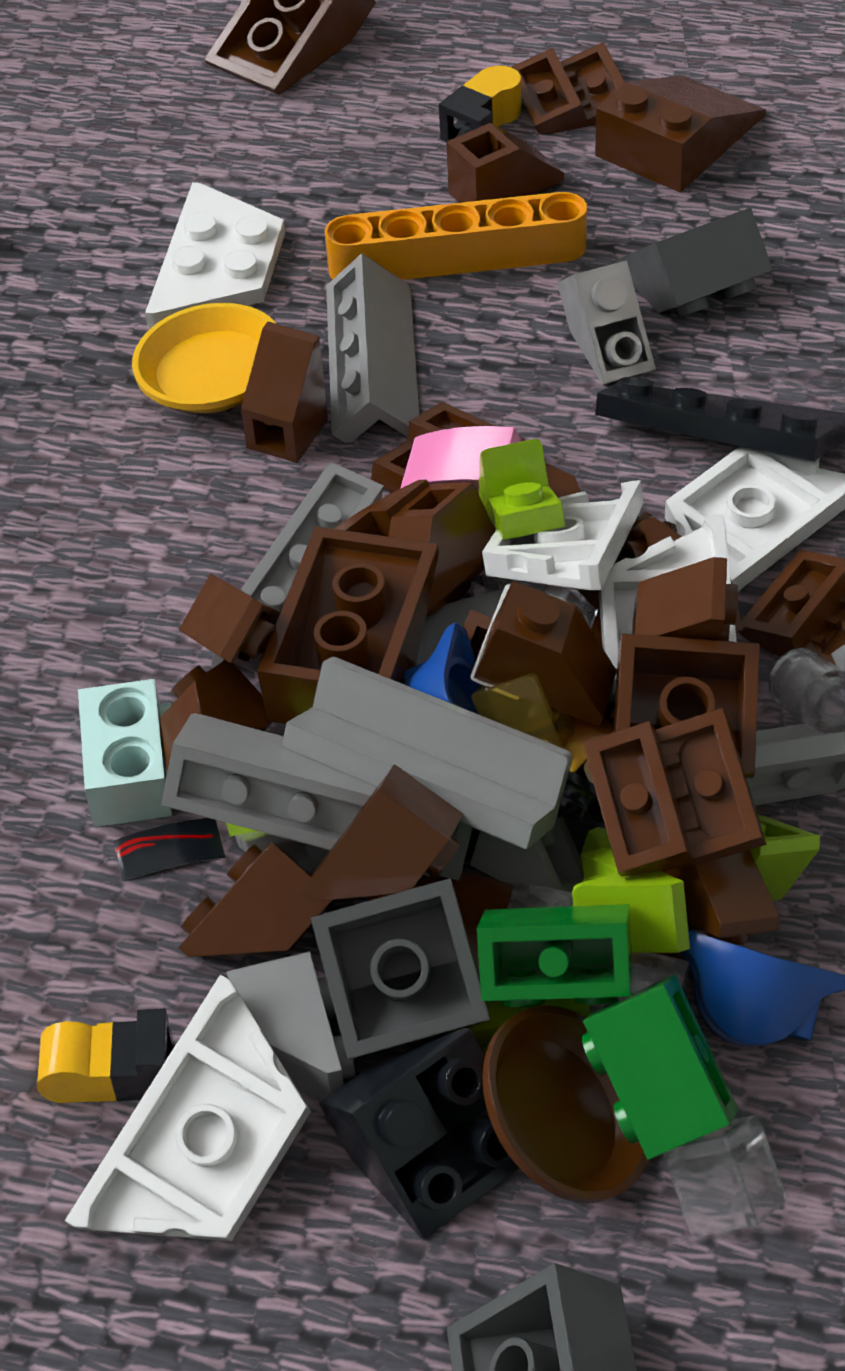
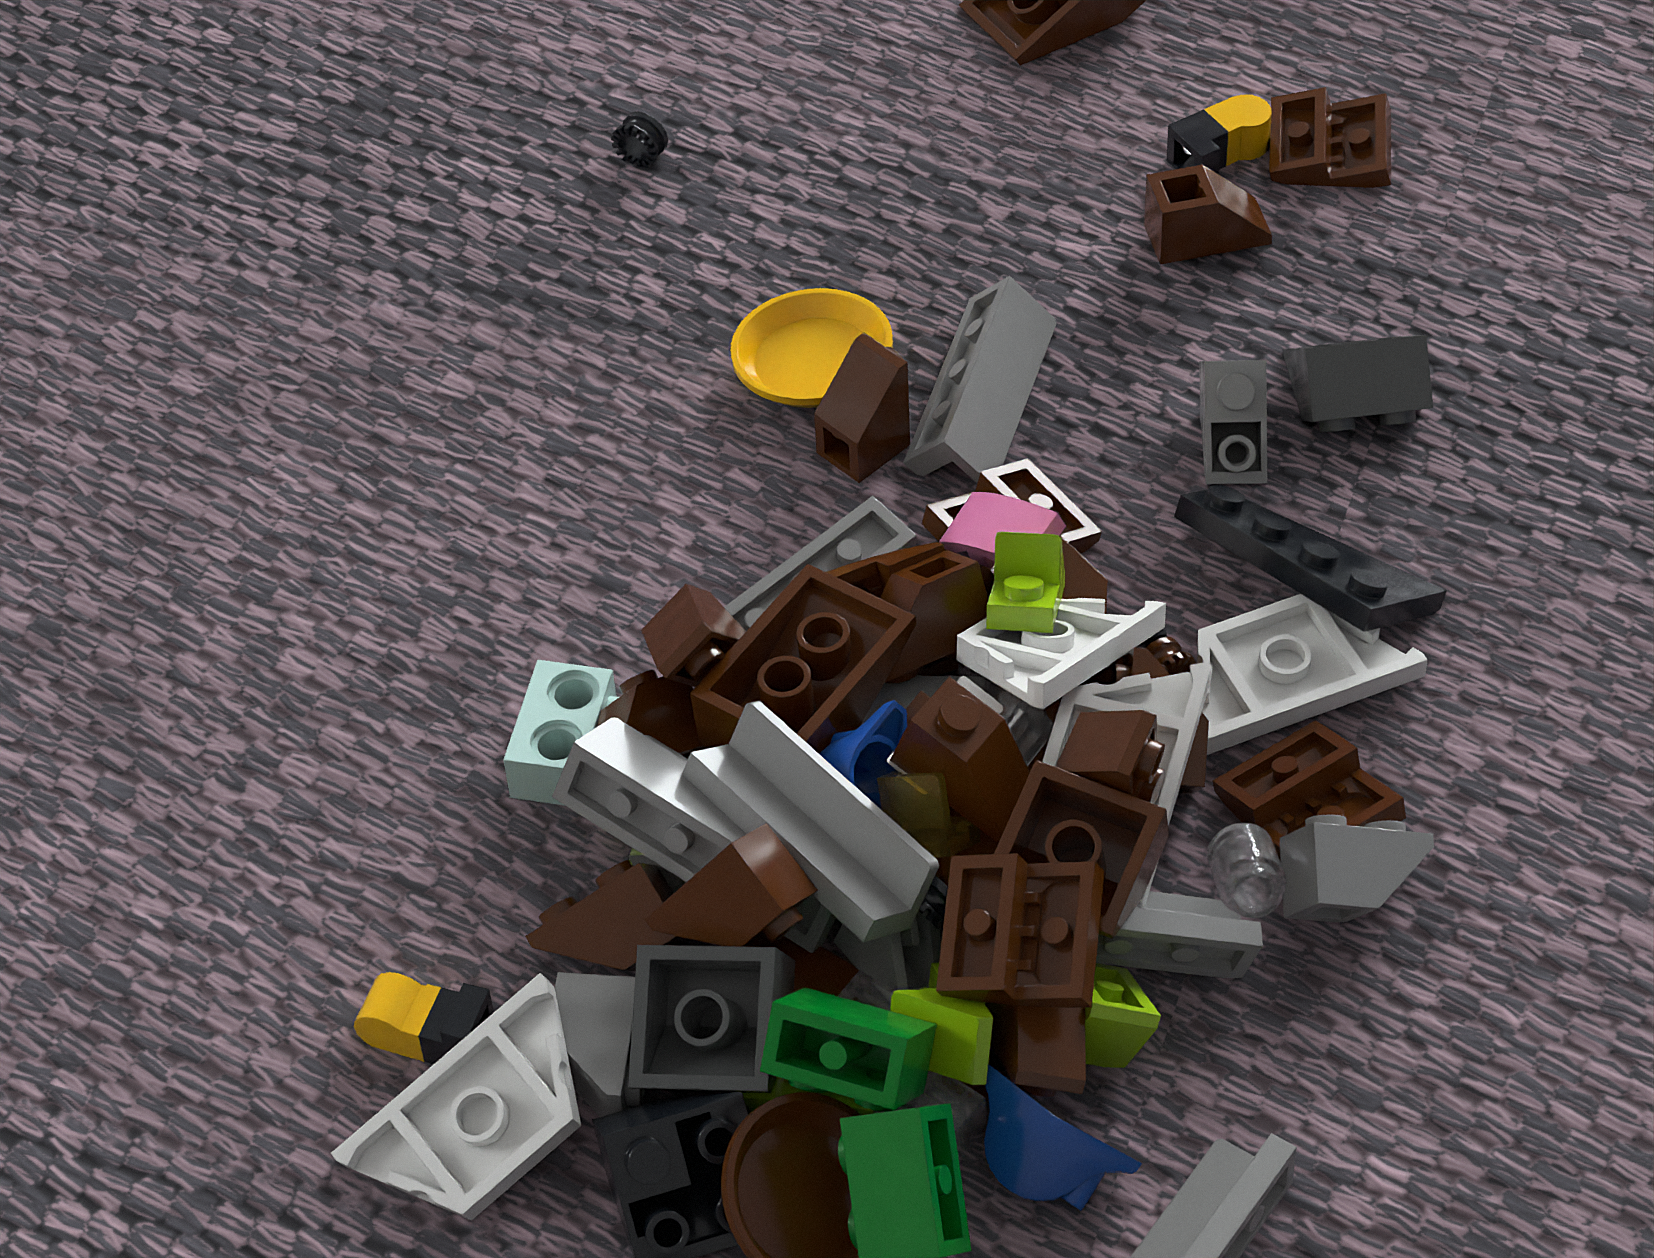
camera: 20 degrees right, 0 degrees up
(168, 847) = (565, 838): black sticker -> none
(216, 255) = (874, 235): white wing -> none
(462, 236) = (1129, 282): light orange beam -> none
(670, 128) = (1415, 211): reddish brown slope -> none

